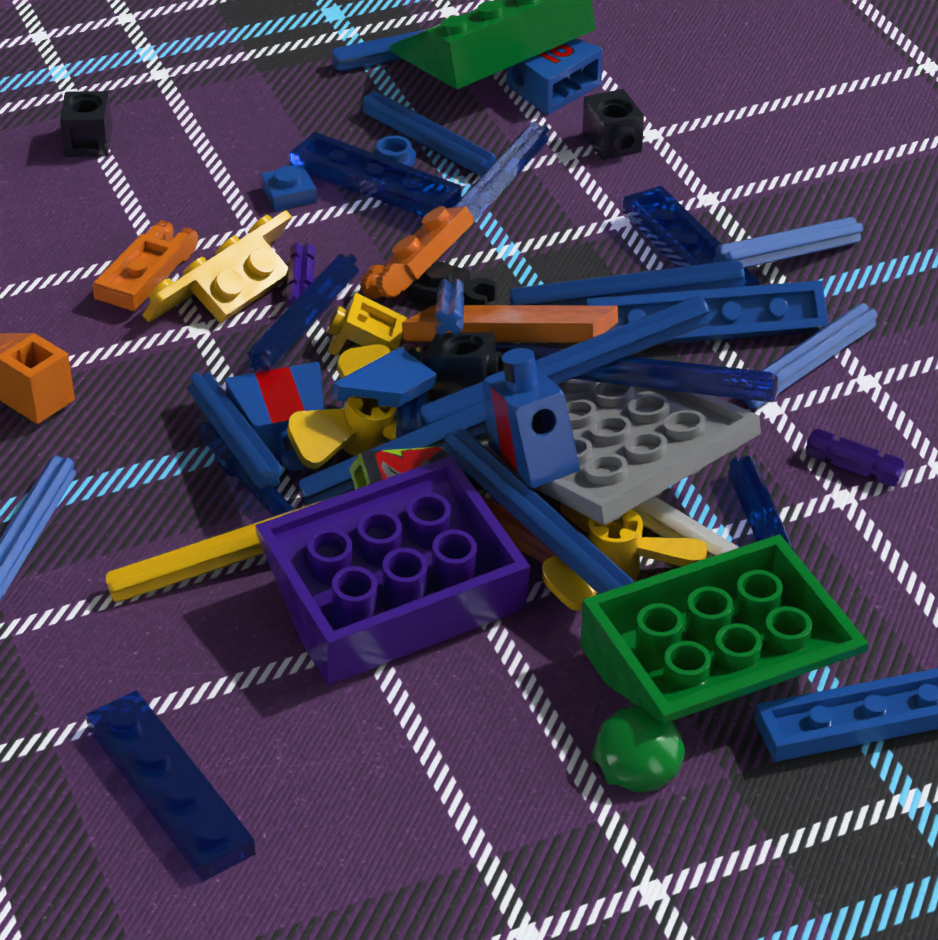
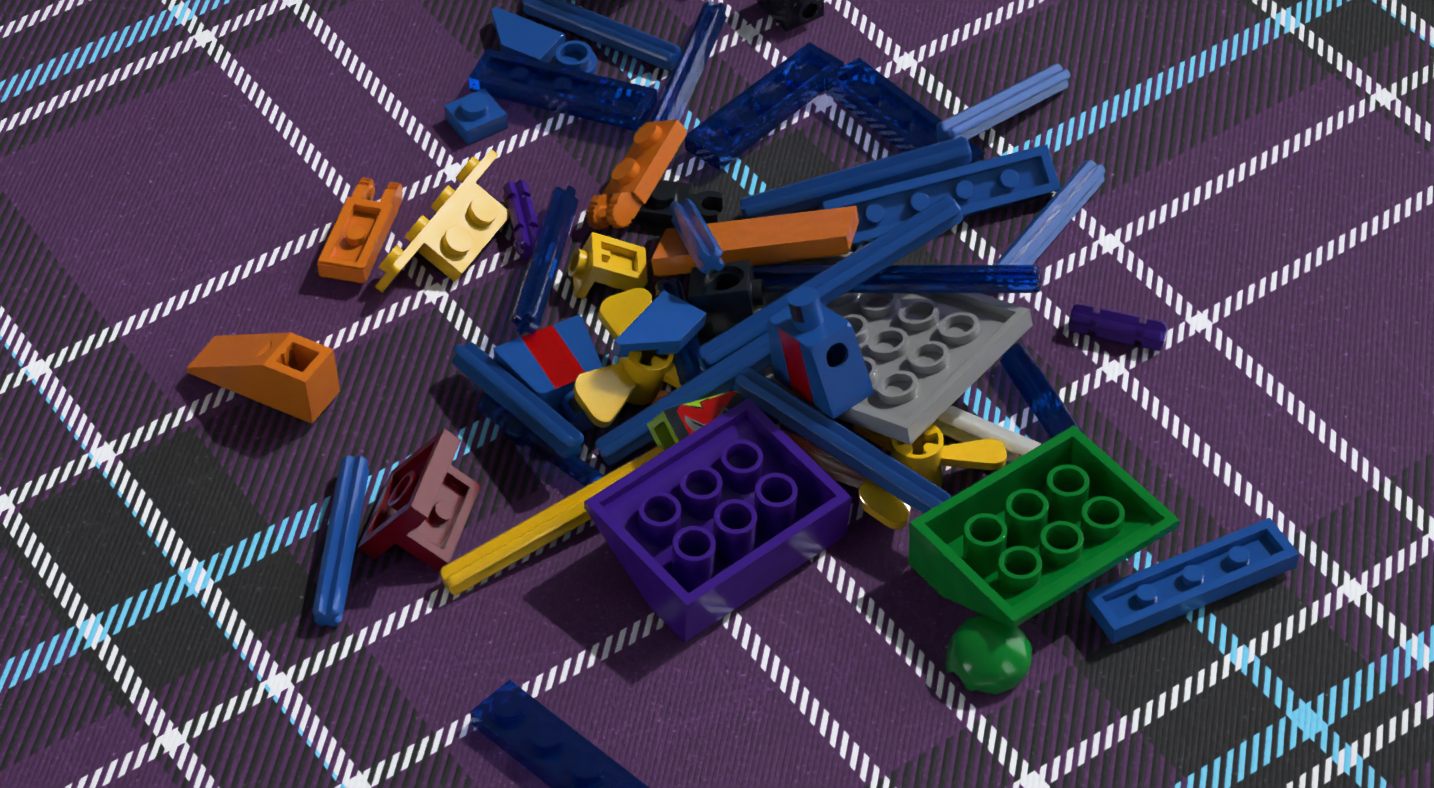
camera: 10 degrees left, 5 degrees up
(86, 123) = (242, 75): black brick -> none
(112, 512) = (423, 505): none -> dark red bracket
(356, 128) = (525, 37): none -> blue tile
(556, 215) = (762, 106): none -> clear blue plate

